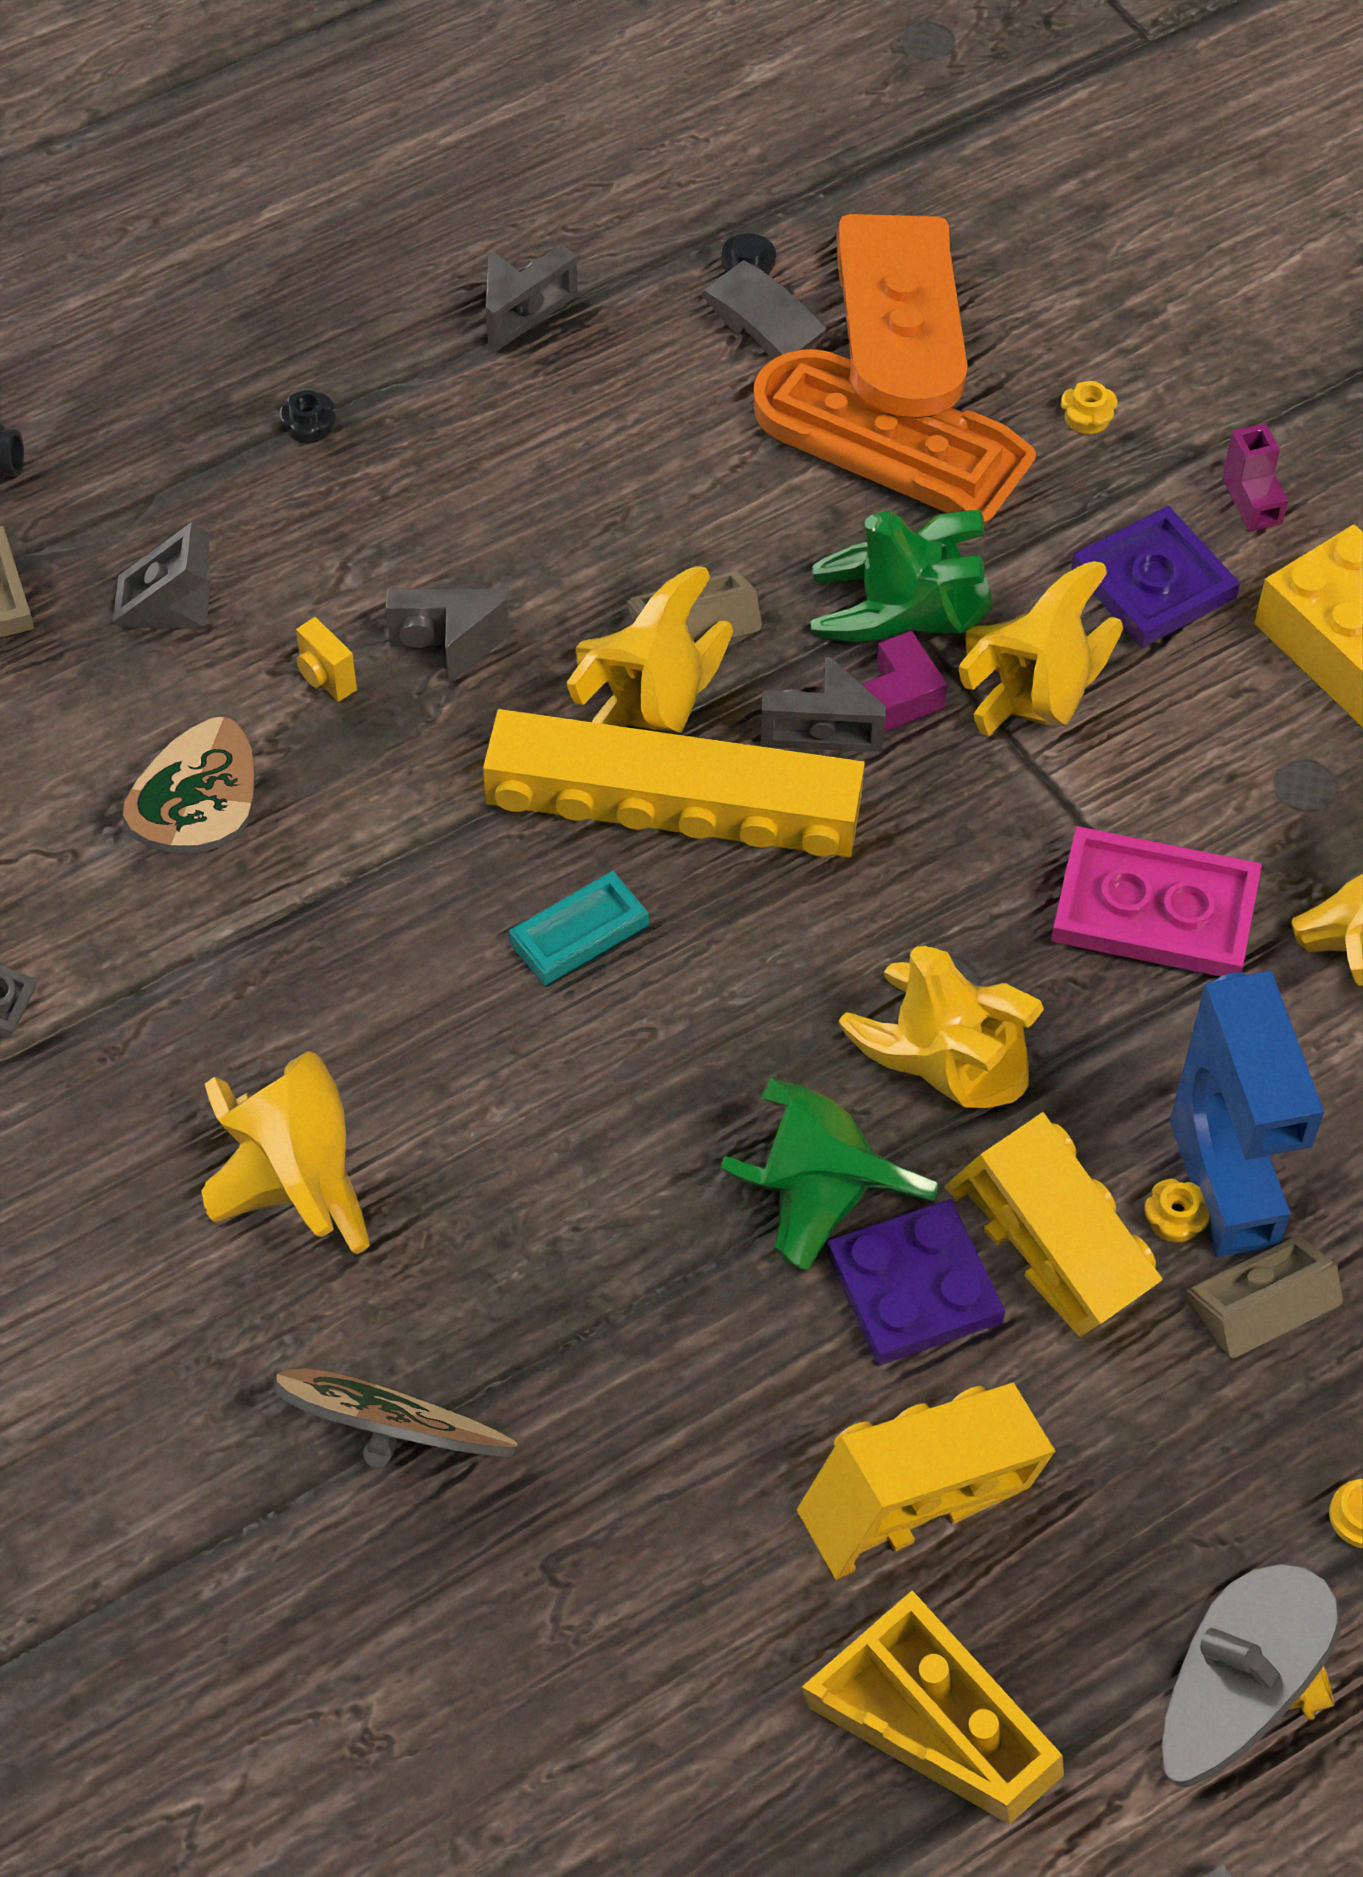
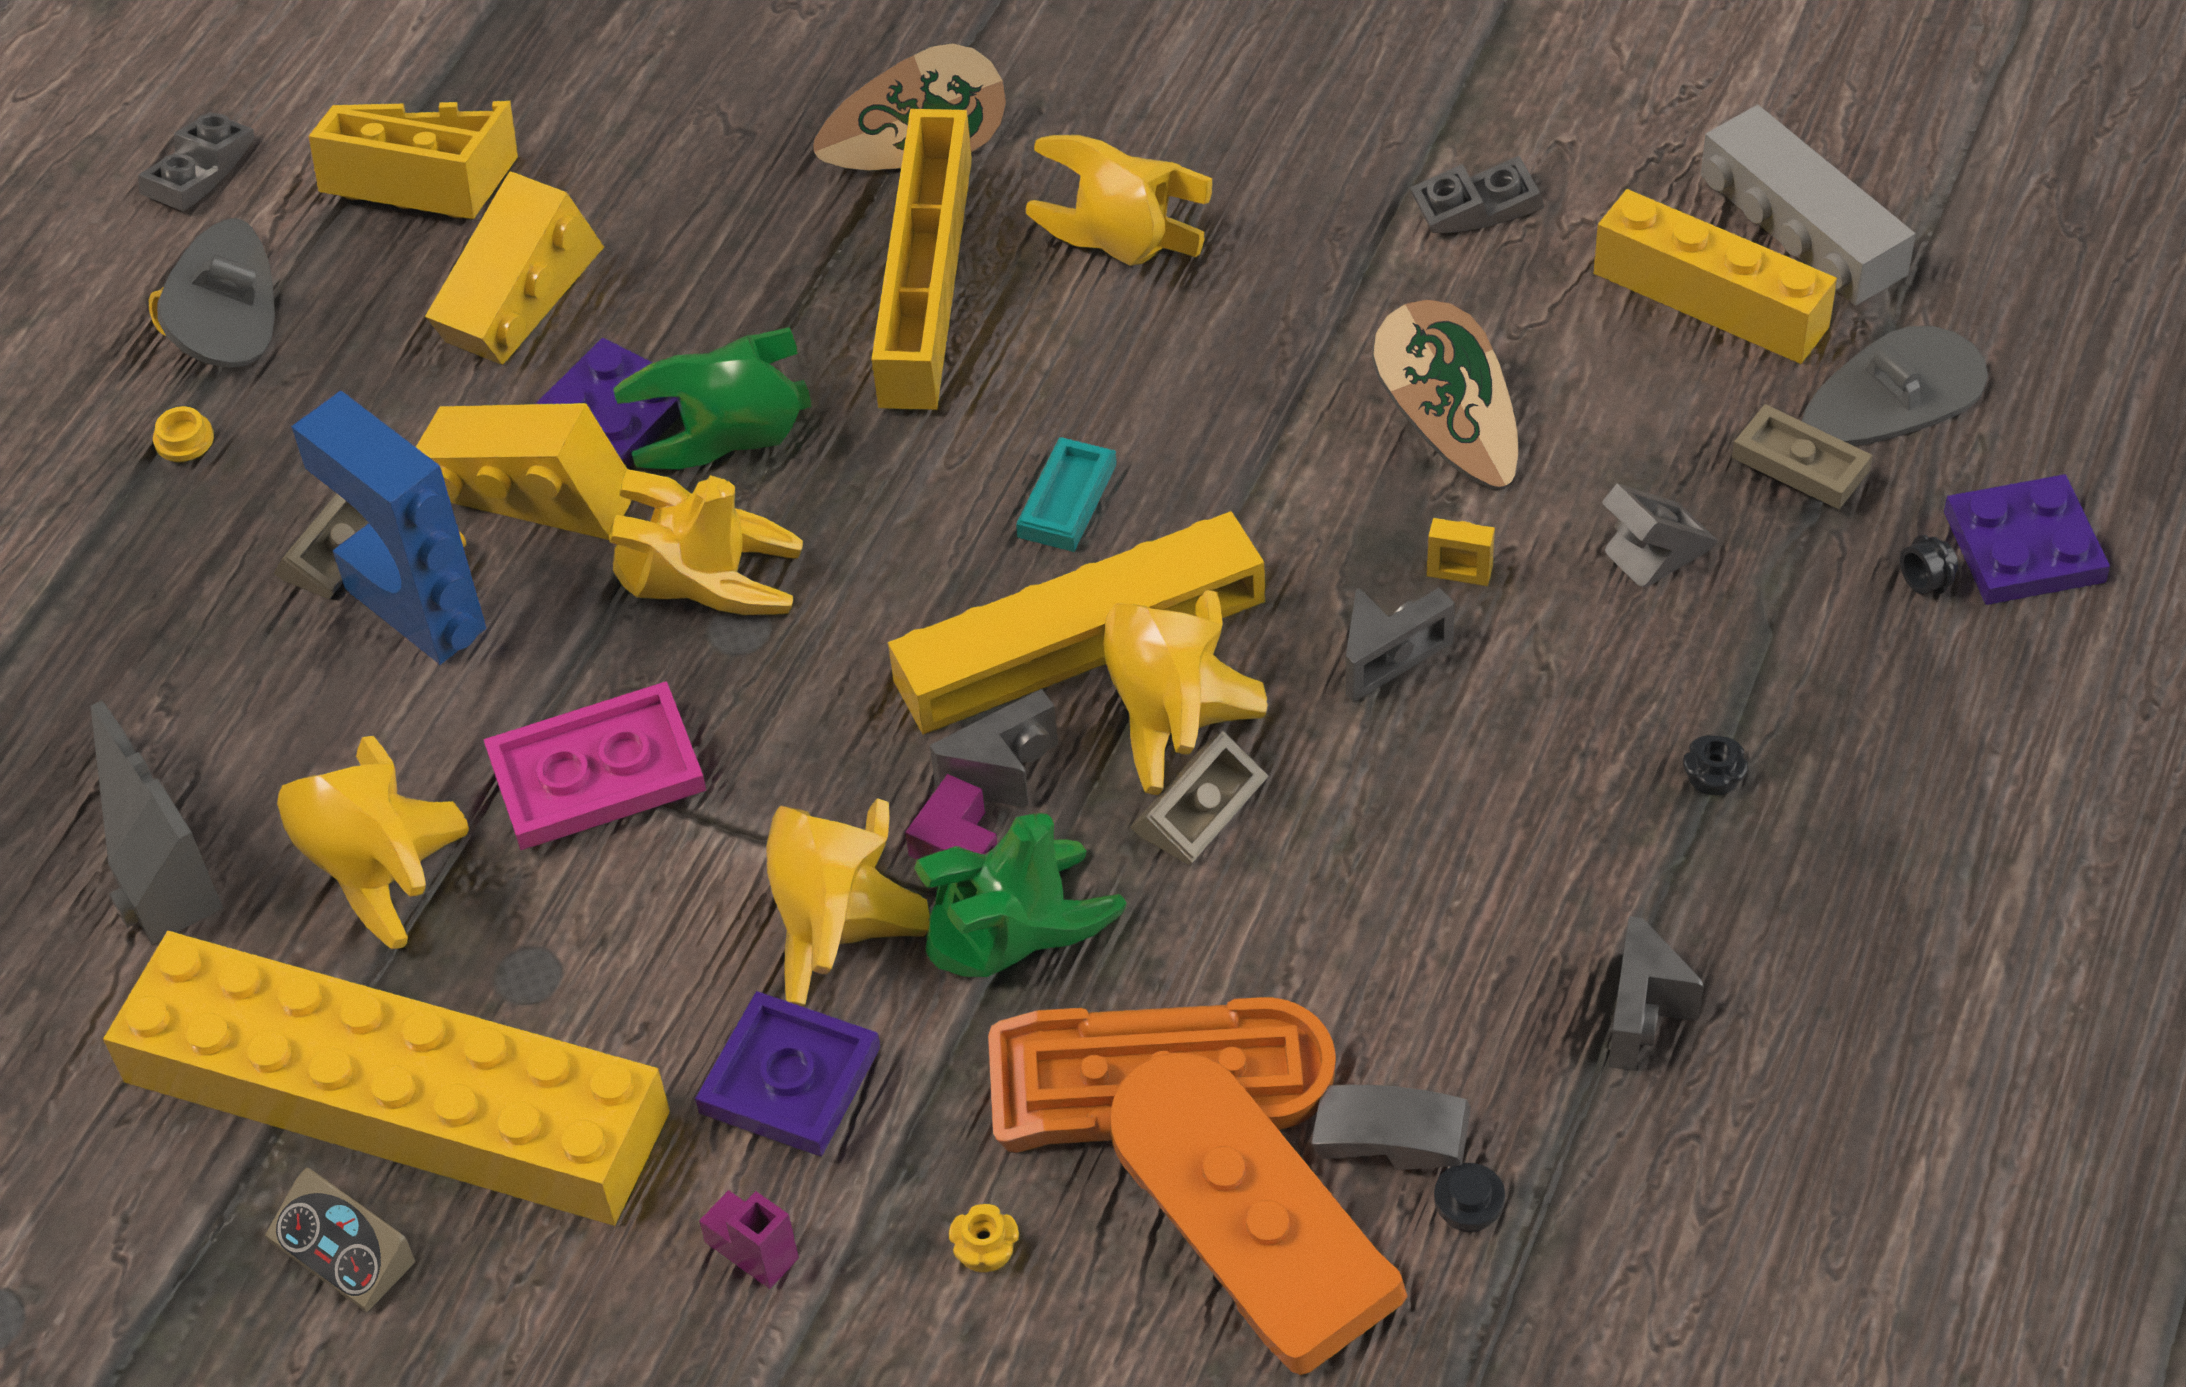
camera: 150 degrees right, 5 degrees down
(516, 1219) = (922, 260): none -> yellow brick

